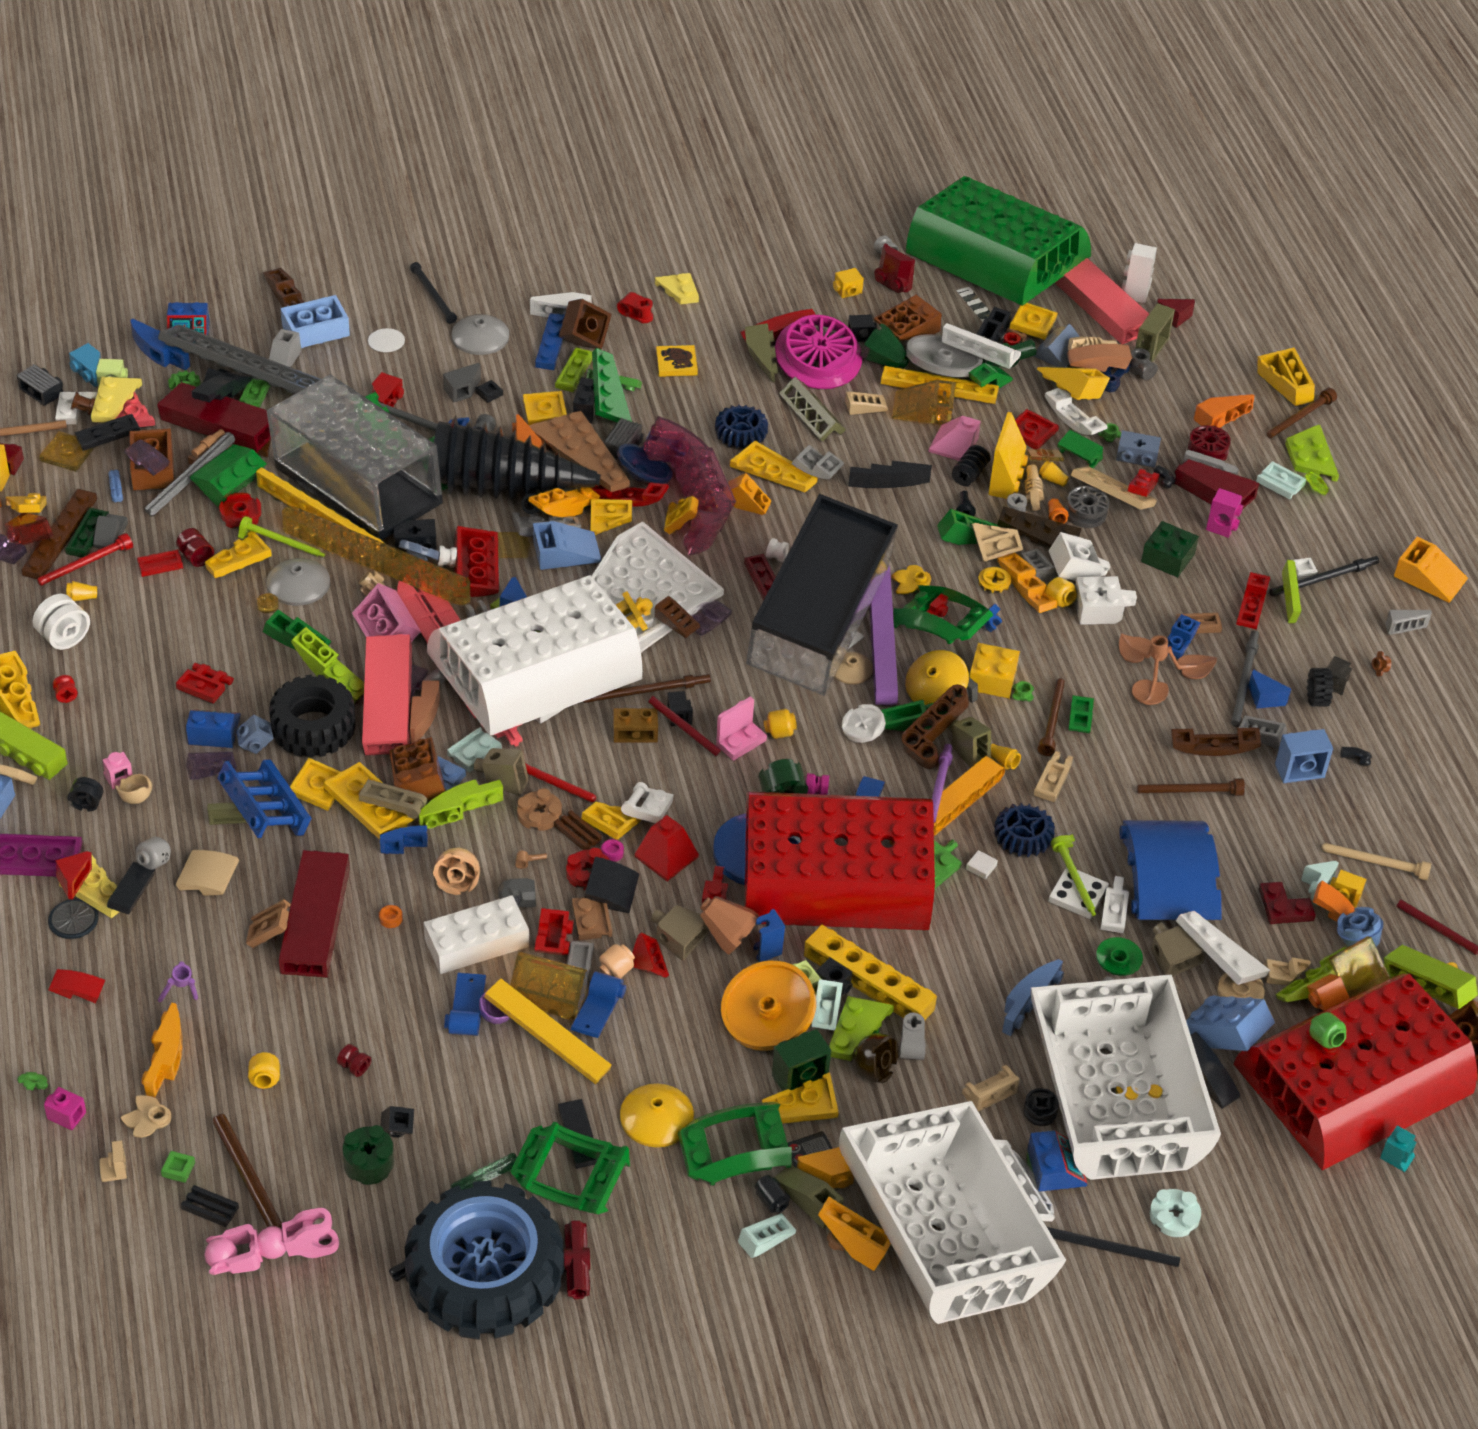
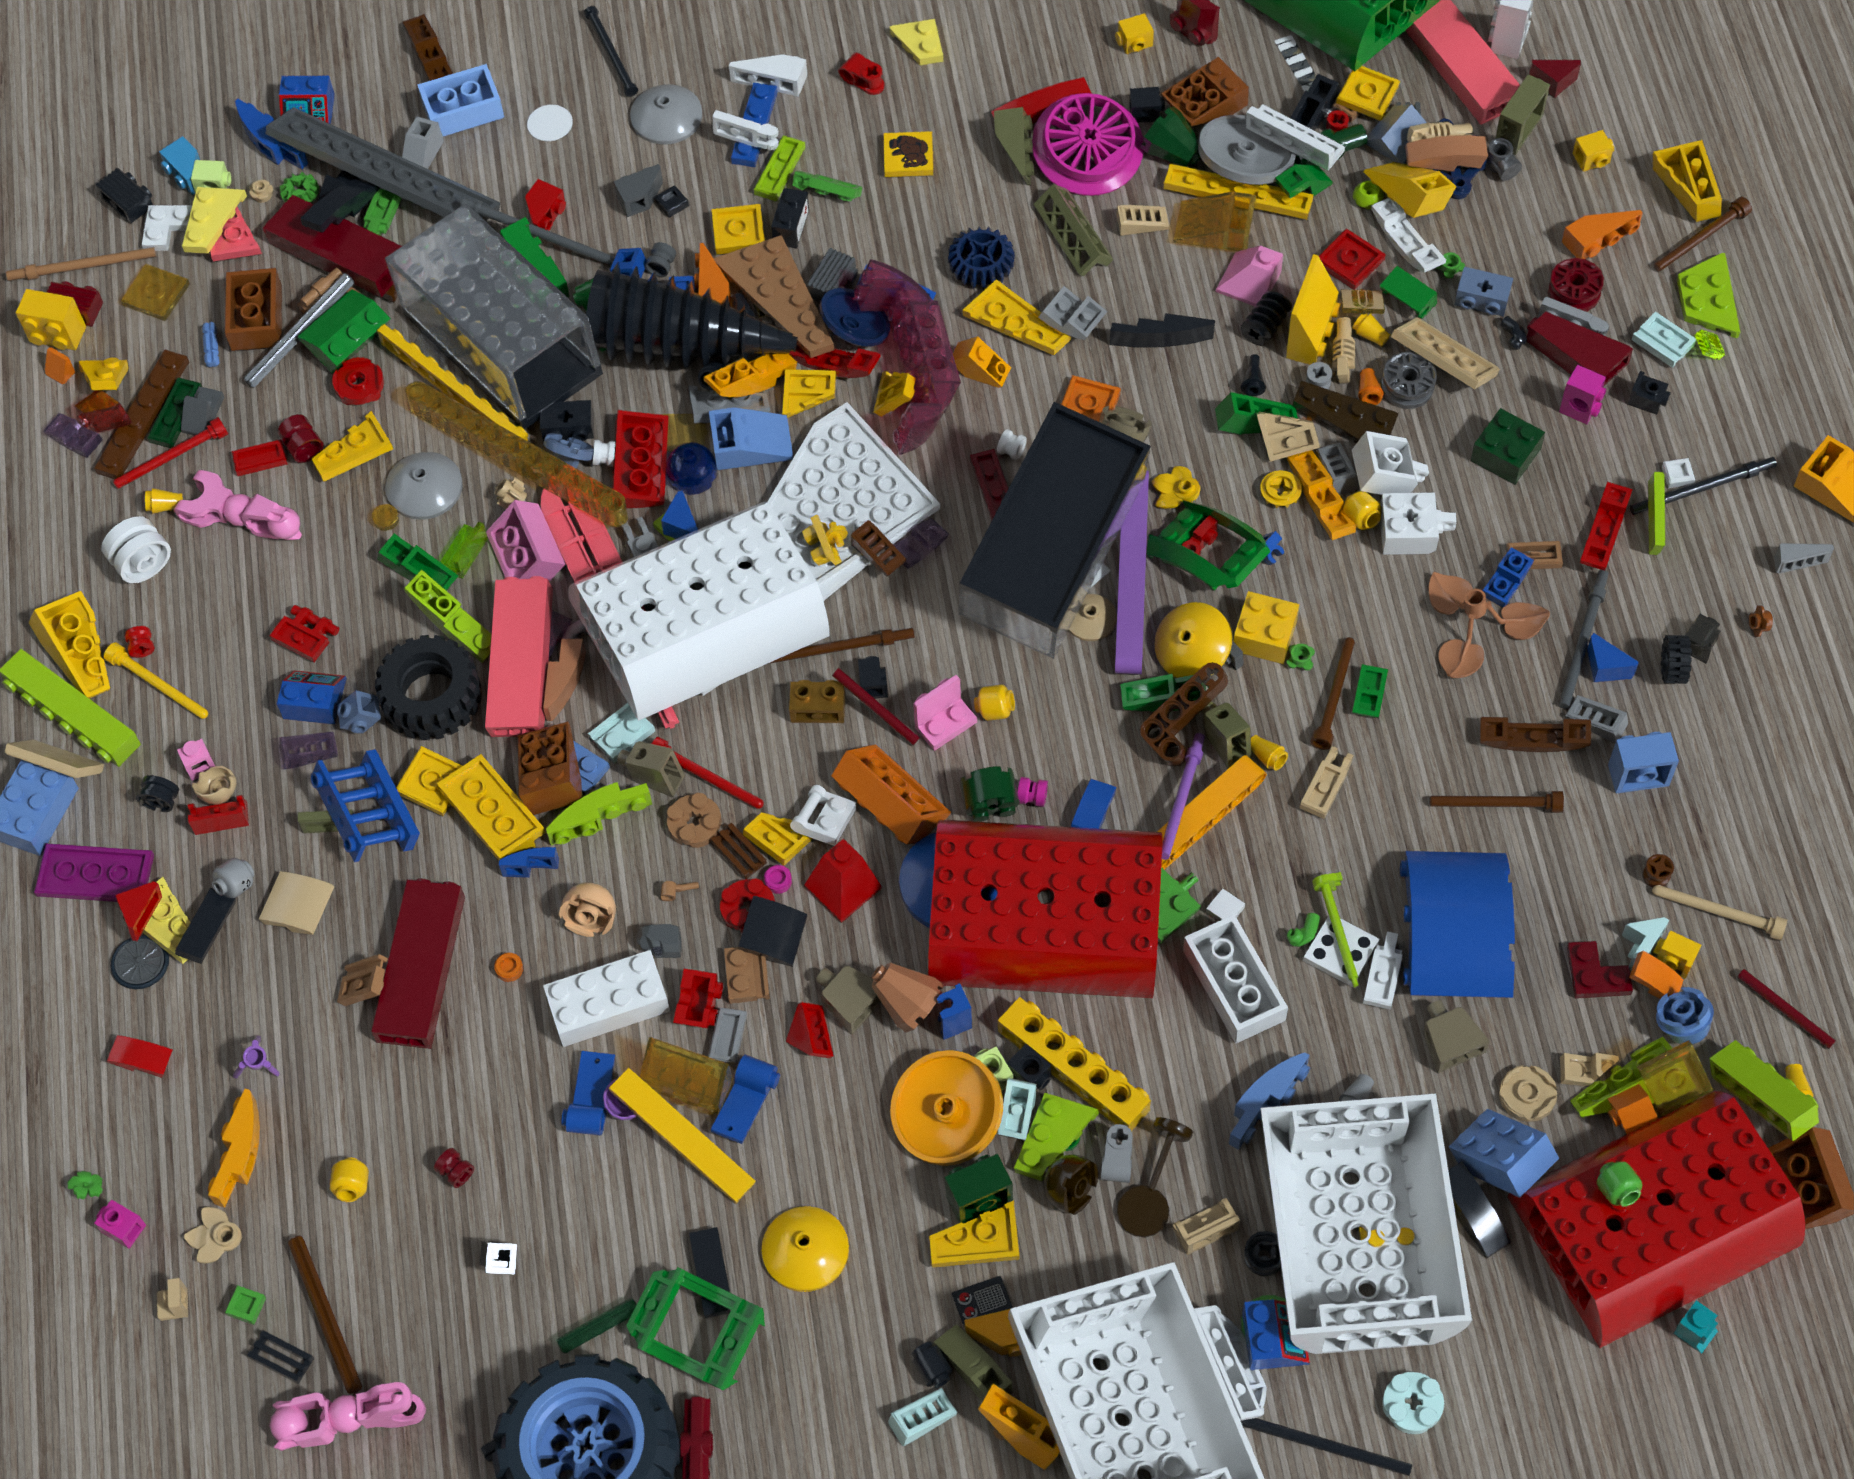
camera: 10 degrees right, 15 degrees up
(46, 699) = (117, 655): none -> yellow piece
(82, 403) = (173, 226): reddish brown bush -> none
(106, 432) = (201, 268): black tile -> none
(129, 592) = (219, 504): none -> bright pink piece
(138, 812) = (219, 817): none -> red hinge
(148, 456) = (244, 313): slope -> none
(153, 383) = (261, 191): none -> tan plate
(246, 525) = (364, 406): lime piece -> none
(337, 622) = (465, 548): none -> clear neon green panel
(368, 1154) = (450, 1288): dark green brick -> none
(393, 798) = (515, 810): dark tan plate -> none
(519, 563) = (691, 468): none -> clear blue cylinder
(546, 340) = (745, 131): none -> white hinge
(585, 324) = (795, 104): reddish brown slope -> none
(608, 391) = (816, 205): green wing -> none
(617, 961) = (770, 1039): light nougat head -> none
(699, 787) = (889, 793): none -> orange slope
(715, 887) = (897, 939): red plate -> none
(770, 1133) = (934, 1286): green wedge -> none
(863, 723) = (1097, 702): white tile -> none
(937, 1078) = (1144, 1209): none -> dark brown piece
(996, 910) = (1235, 978): none -> white brick
(1026, 824) = (1298, 851): dark blue gear -> none
(1040, 386) = (1367, 194): none -> lime plate
(1047, 882) = (1307, 933): none -> bright green arm
(1120, 949) = (1385, 1034): green dish -> none
(1143, 483) = (1483, 346): red plate -> none
(1210, 358) = (1593, 150): none -> yellow brick
(1225, 952) = (1512, 1047): white wing -> none
(1274, 515) = (1649, 394): none -> black brick
(1324, 832) = (1660, 864): none -> reddish brown wheel
(1355, 752) = (1713, 752): black arm -> none

